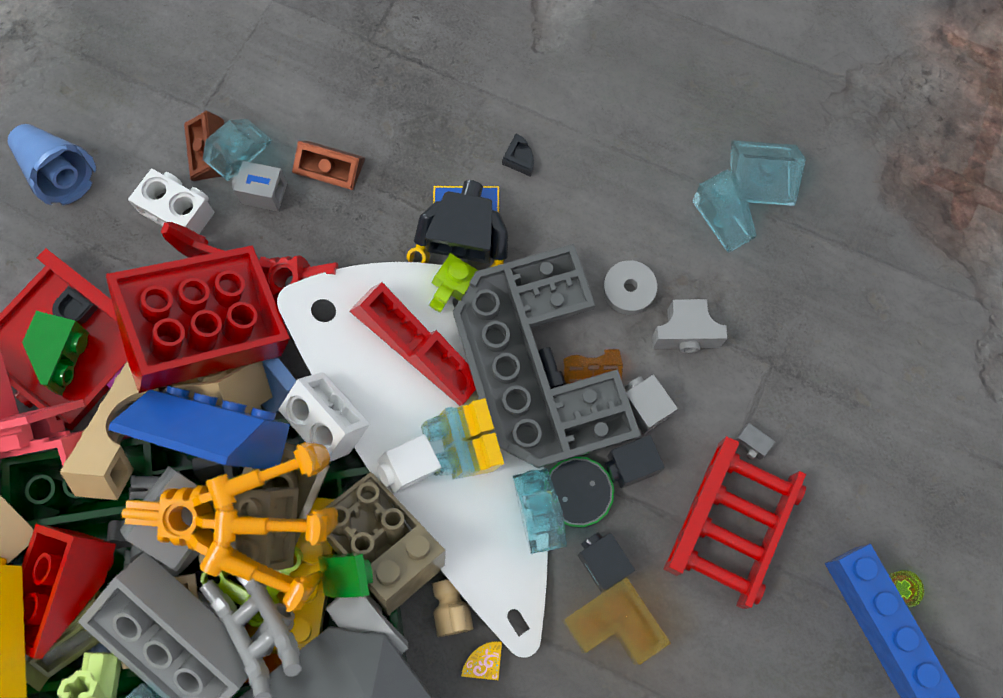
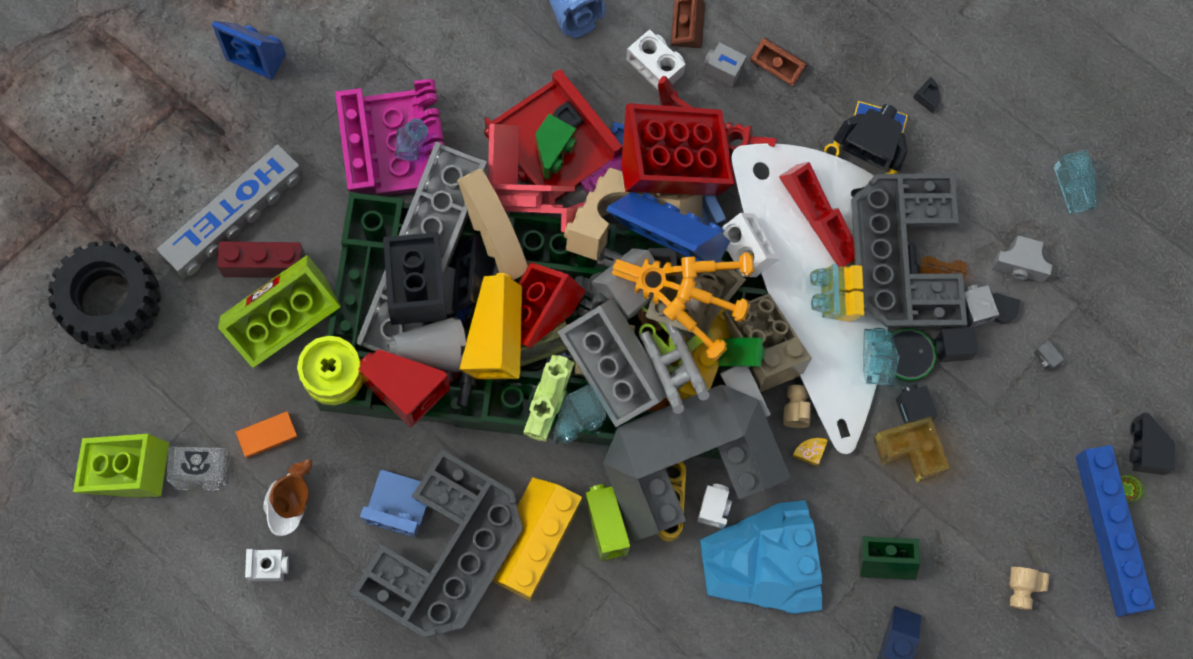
camera: 10 degrees right, 0 degrees up
(232, 144) = (713, 30): clear light blue slope -> none
(407, 464) = (798, 294): white brick -> none
(451, 280) = (856, 176): lime plate -> none
(629, 273) = (994, 210): light grey piece -> none
(684, 394) = (1007, 308): none -> black tile
(700, 525) = (1009, 382): red fence -> none
(767, 171) = (1118, 159): clear light blue slope -> none
(917, 525) = (1152, 447): none -> black slope

